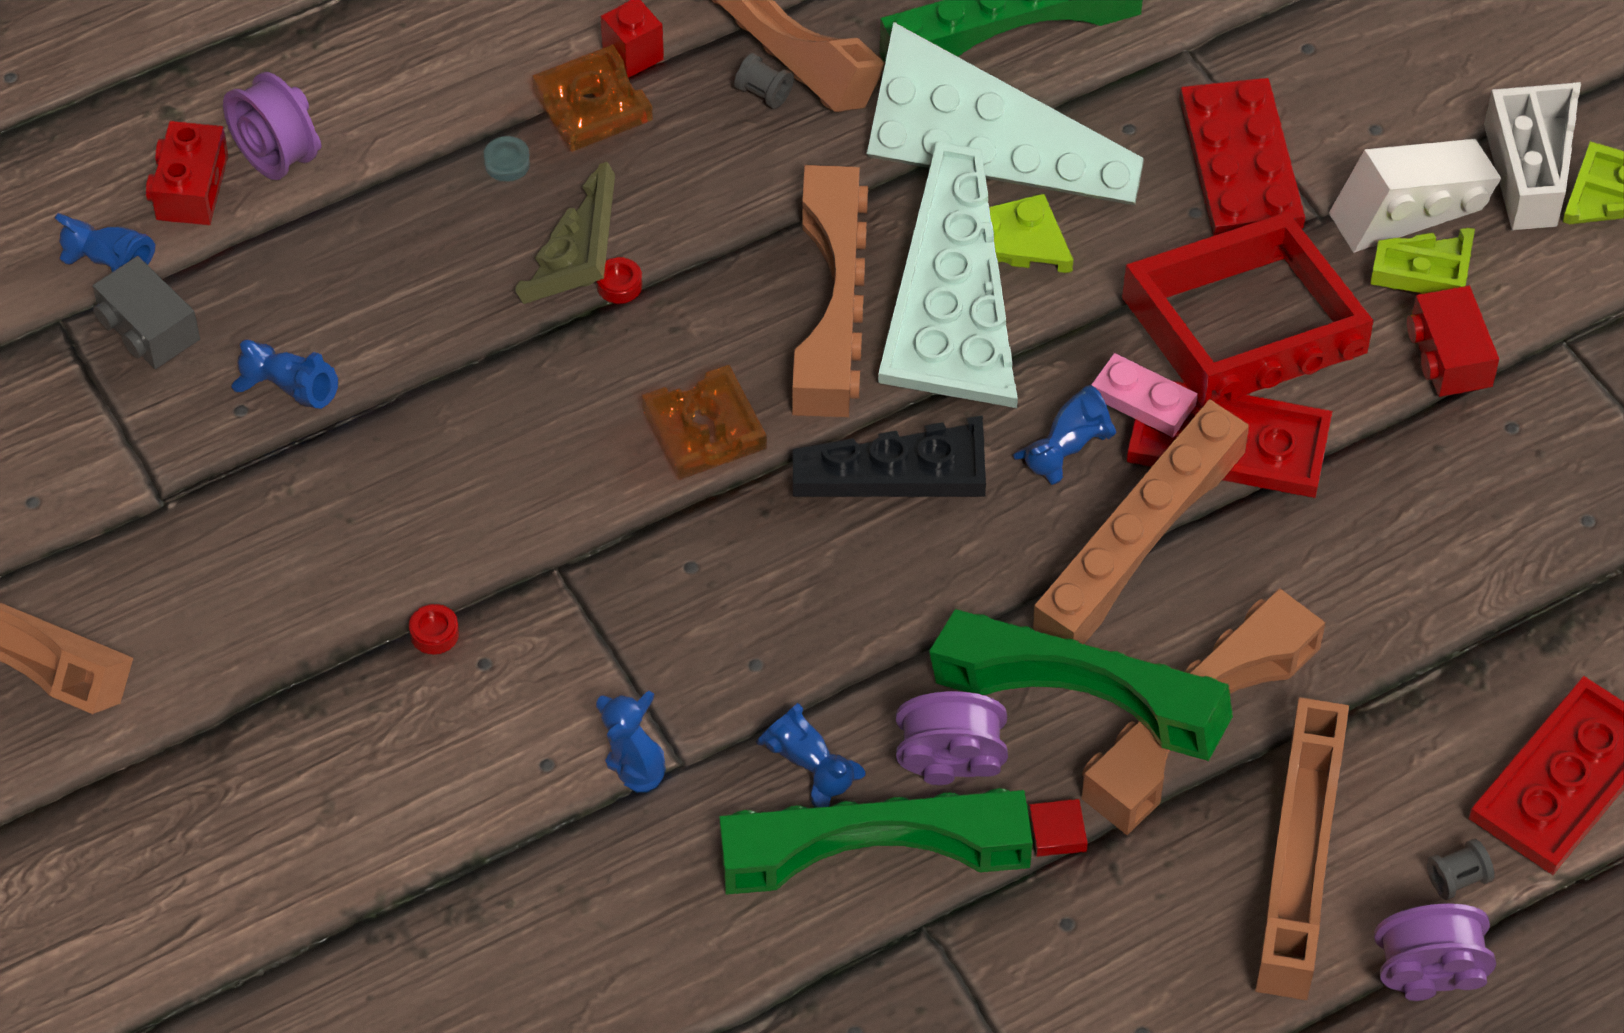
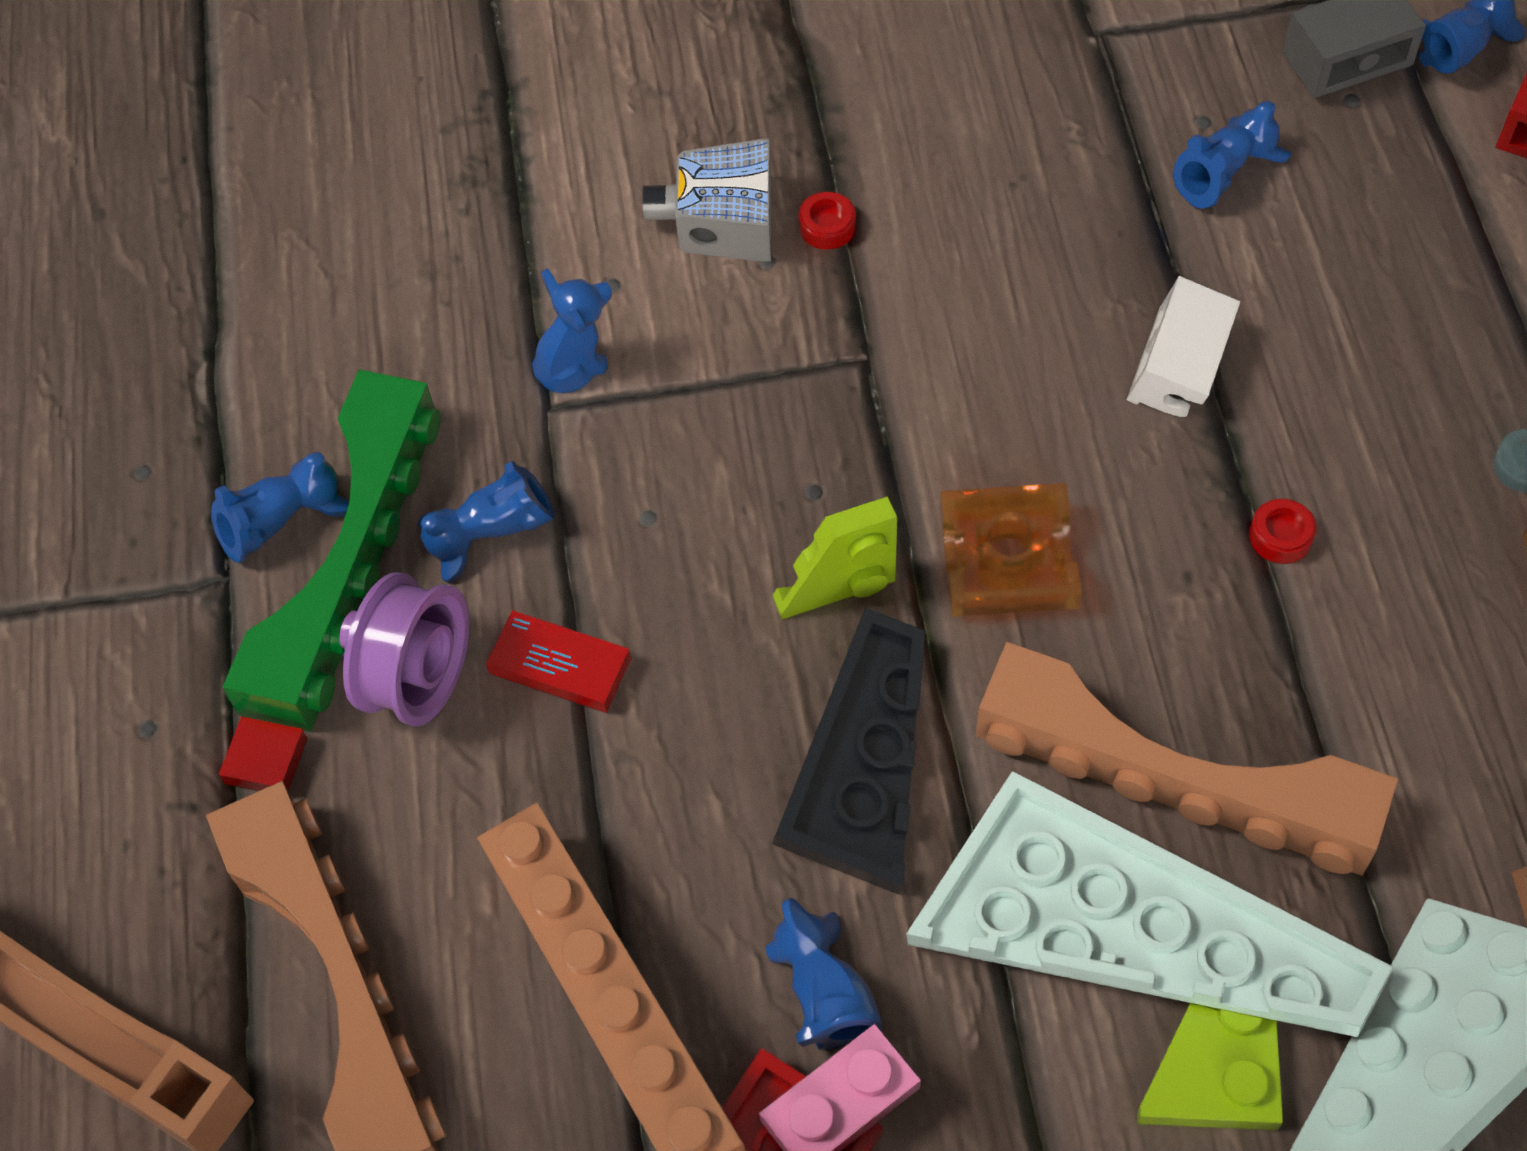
camera: 115 degrees right, 5 degrees up
(448, 695) = (719, 201): none -> torso
(488, 362) = (1184, 348): none -> white hinge
(577, 244) = (1360, 496): olive wing -> none
(763, 502) = (848, 558): none -> lime wing
(877, 910) = (259, 511): none -> blue animal
(901, 666) = (559, 661): none -> red tile
(993, 656) = (285, 896): green arch -> none

